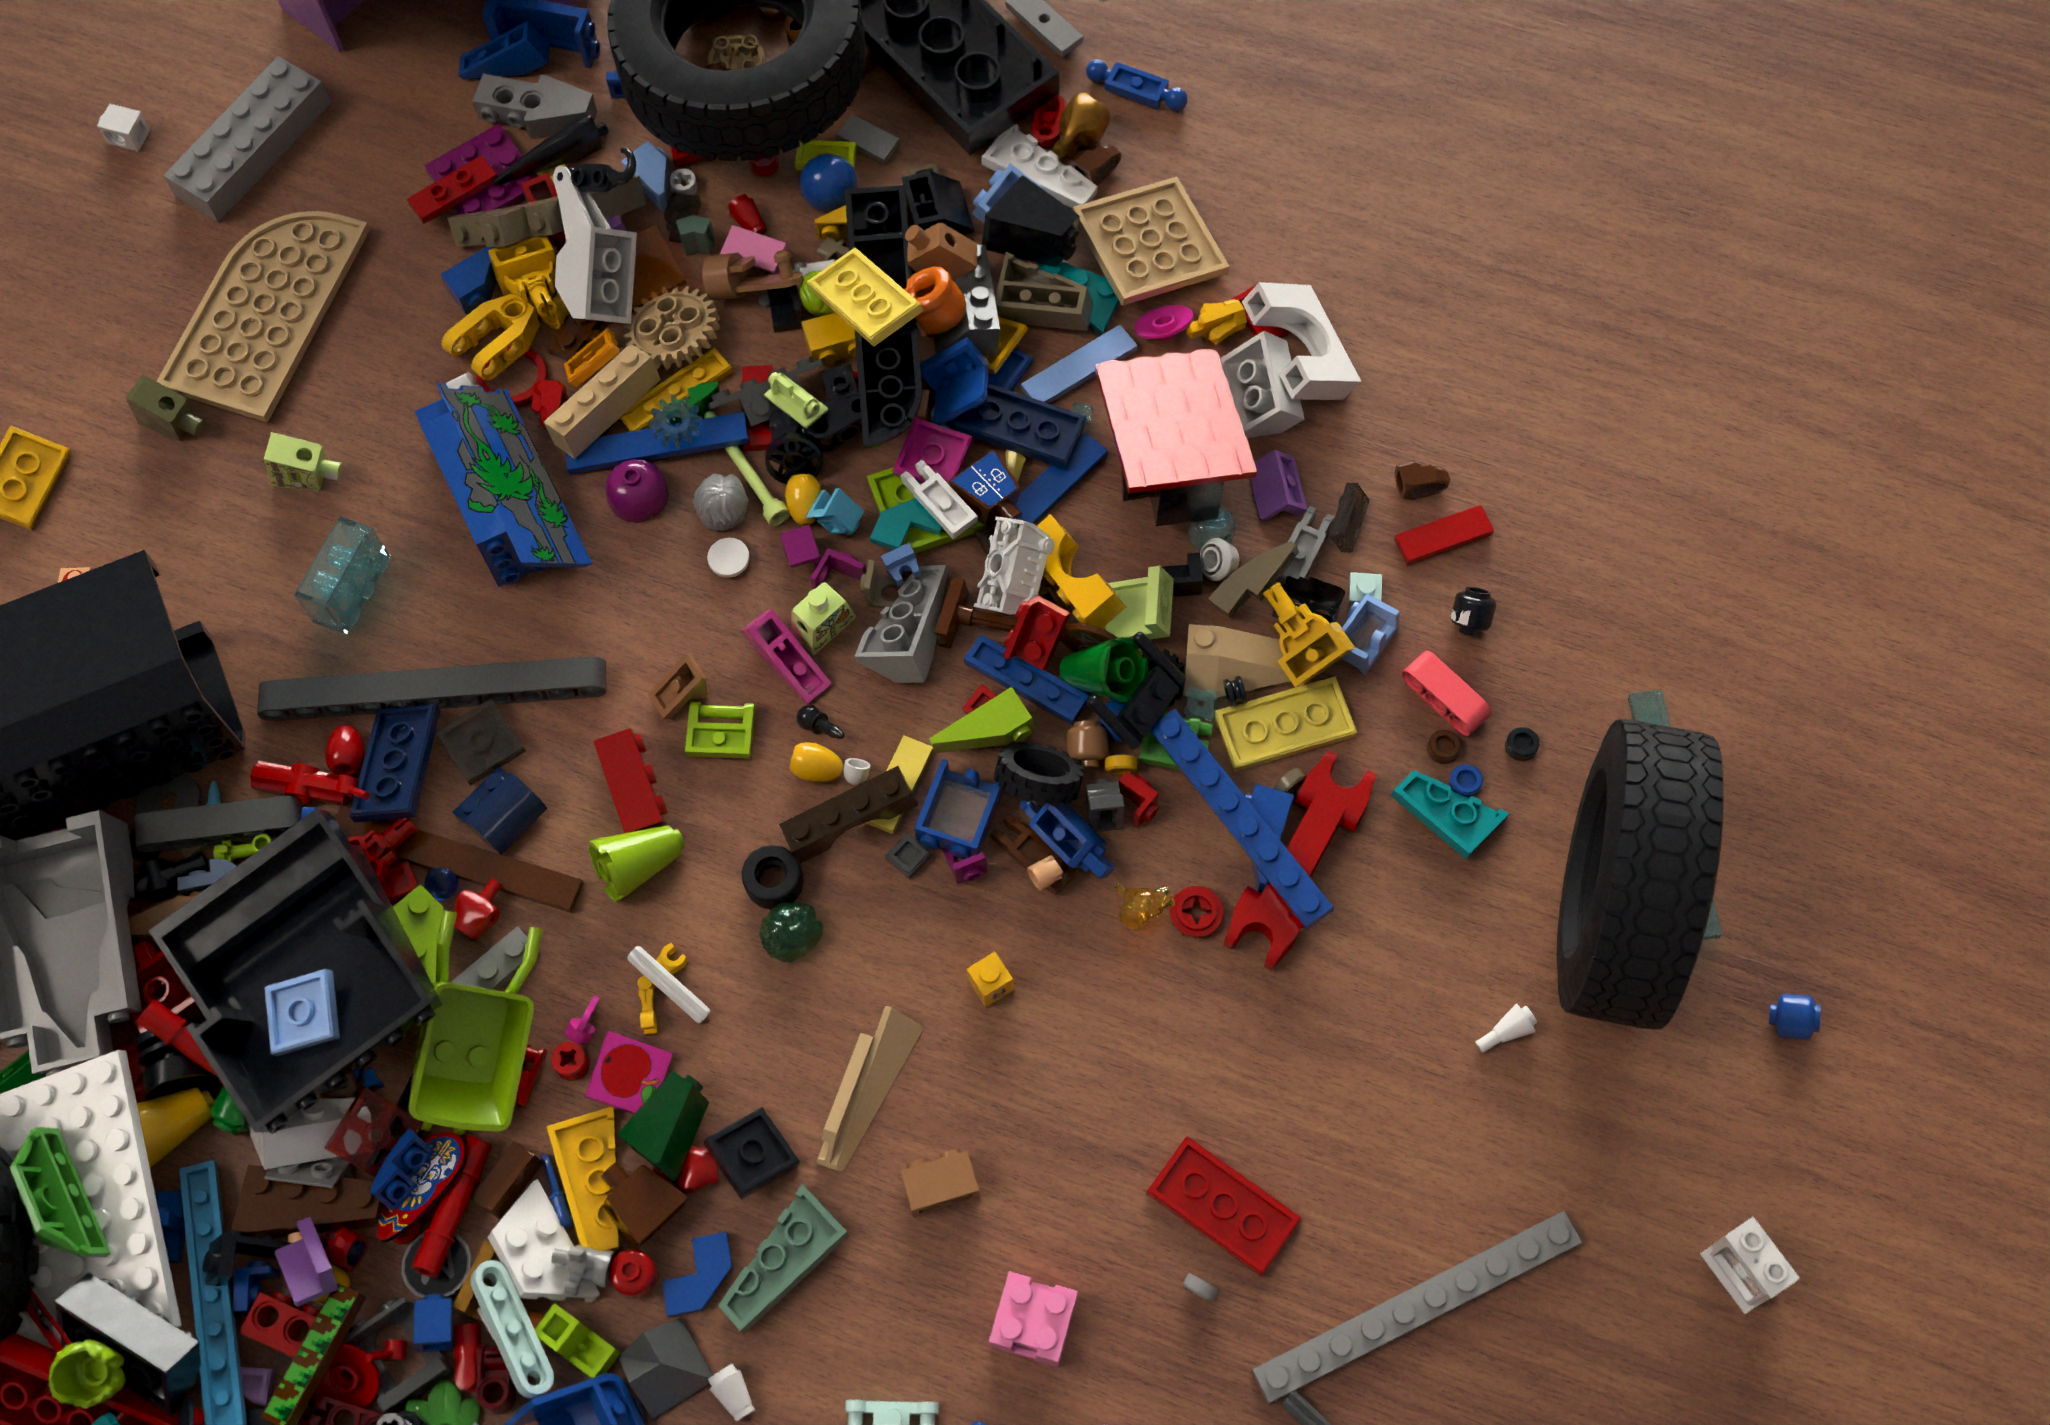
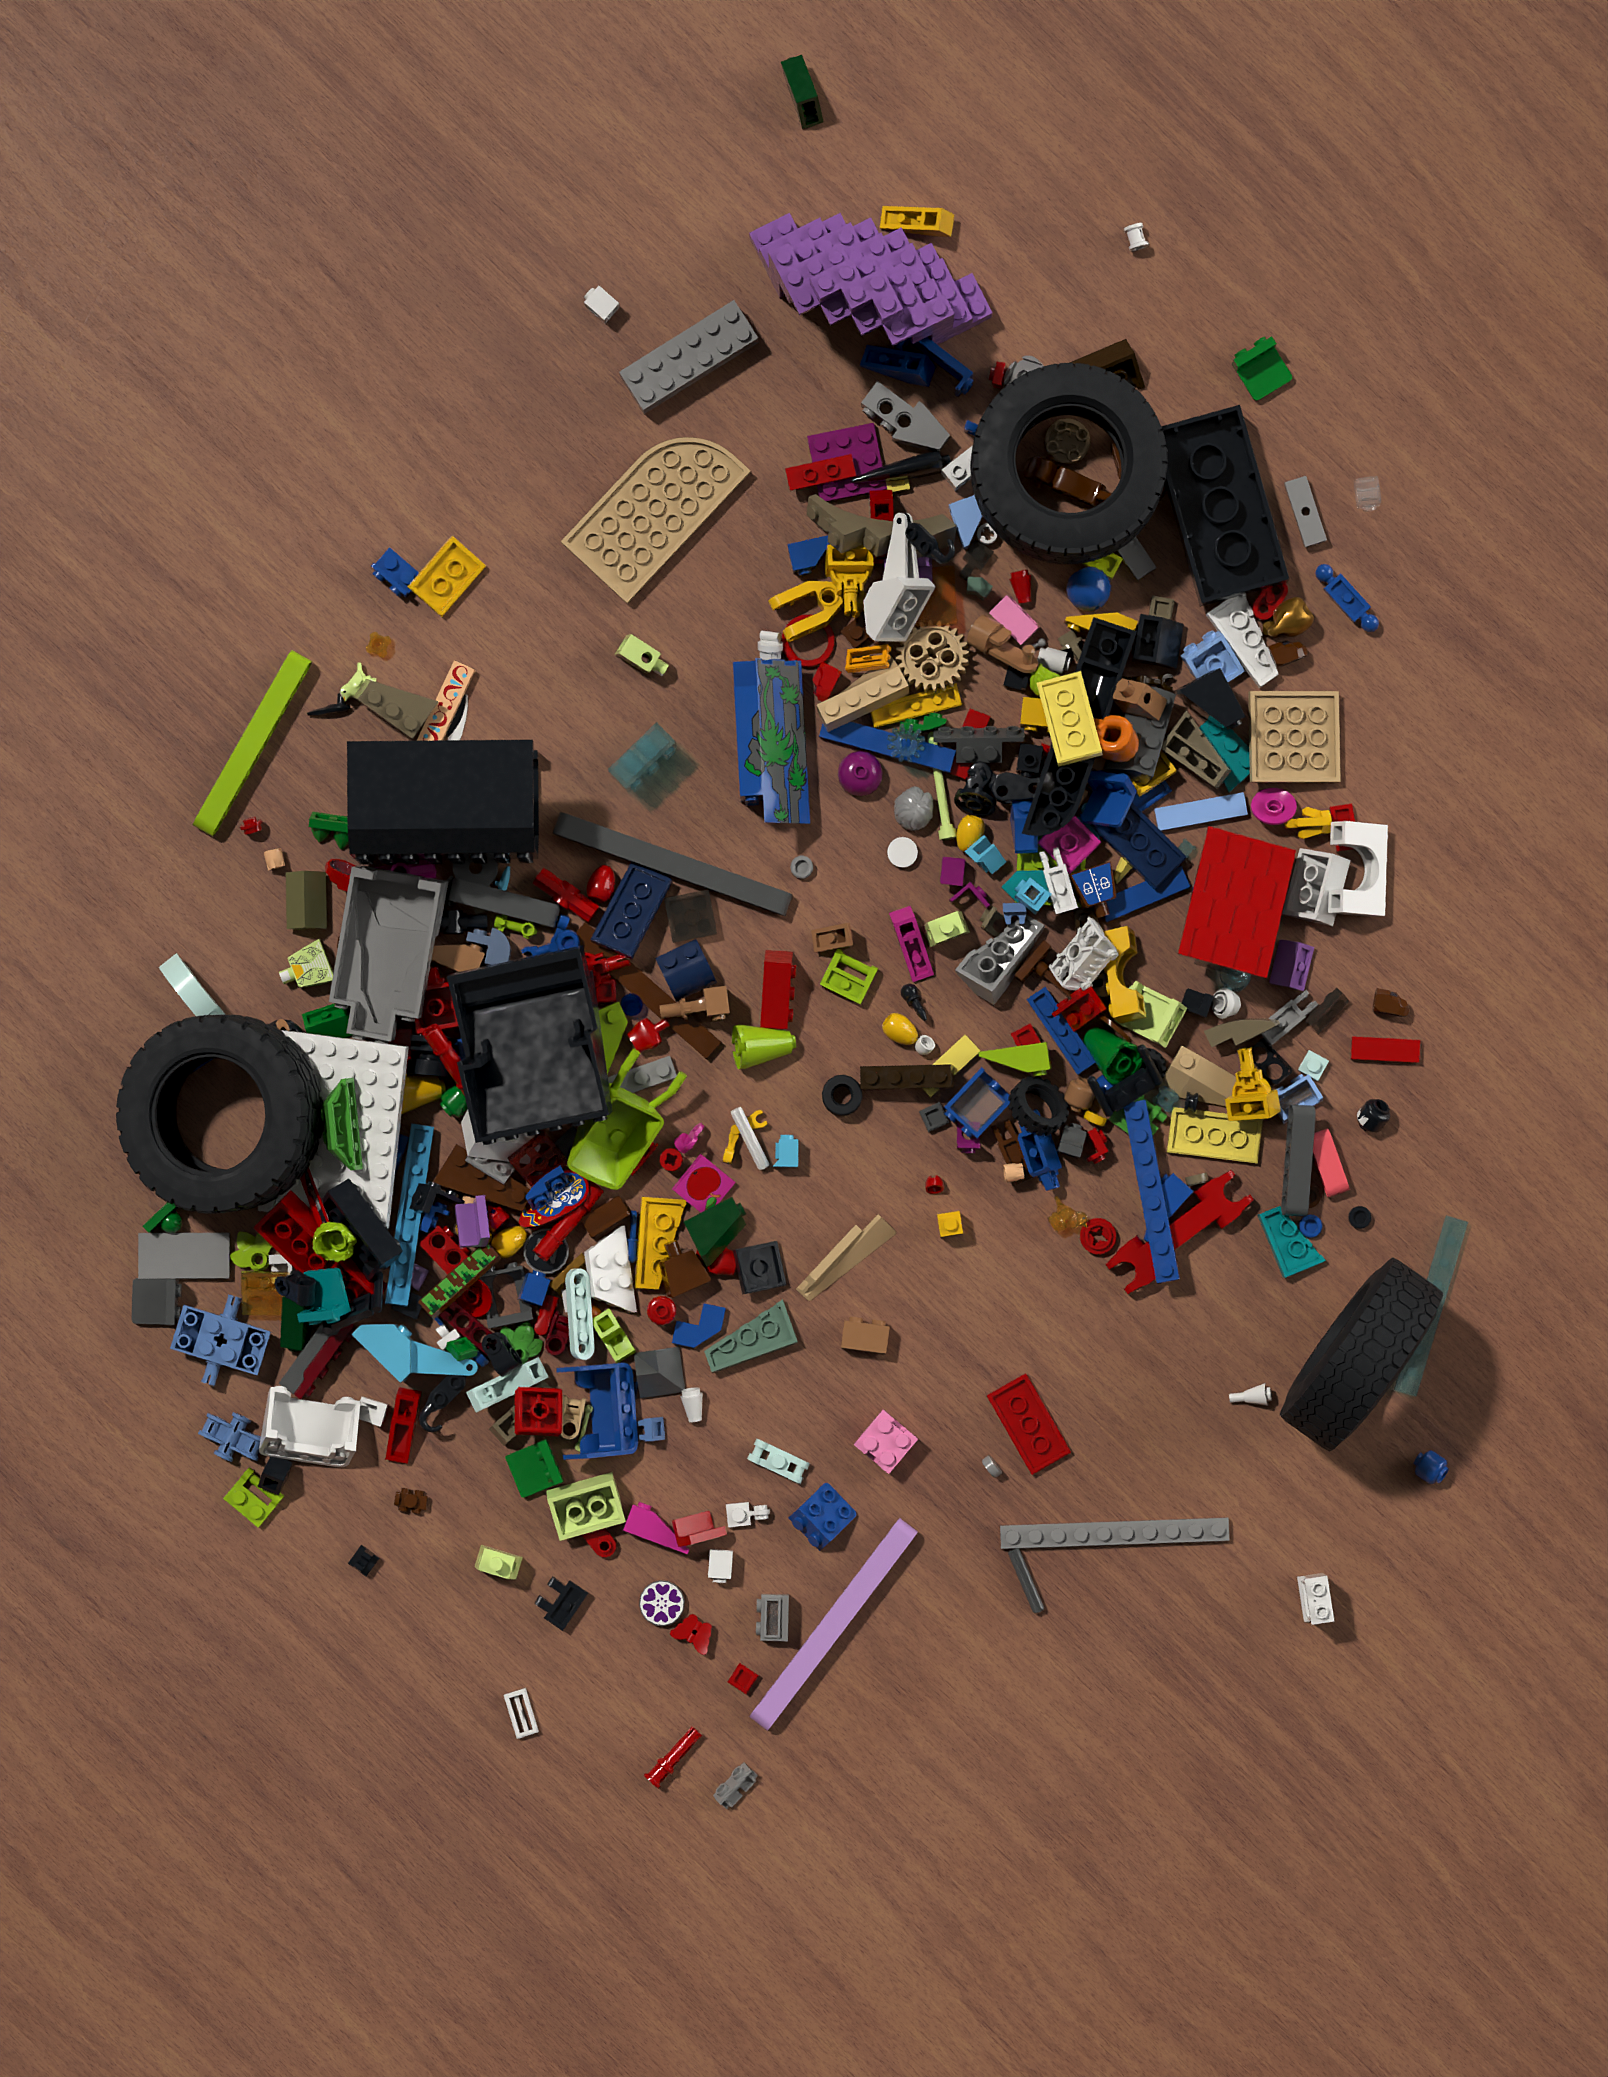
camera: 25 degrees right, 20 degrees up
(163, 409) = (554, 563): olive torso -> none
(301, 1012) = (524, 1074): light blue tile -> none
(348, 786) = (595, 916): red hand -> none
(376, 1273) = (509, 1241): none -> yellow animal
(394, 1350) = (503, 1291): red hand -> none
(545, 833) = (714, 1005): none -> medium nougat brick
(583, 1263) = (636, 1293): light grey piece -> none
(606, 627) = (801, 867): none -> light grey tile
(620, 128) = (958, 471): none -> white brick
(727, 983) = (786, 1152): none -> medium azure window
(790, 931) = (839, 1136): clear green hair -> none
(794, 400) = (992, 766): yellowish green hinge -> none
(868, 465) = (1022, 842): none -> blue slope
(911, 525) = (1031, 895): none -> medium azure window
(951, 946) = (934, 1185): none -> red hinge
(1409, 698) = (1298, 1160): none -> dark grey beam

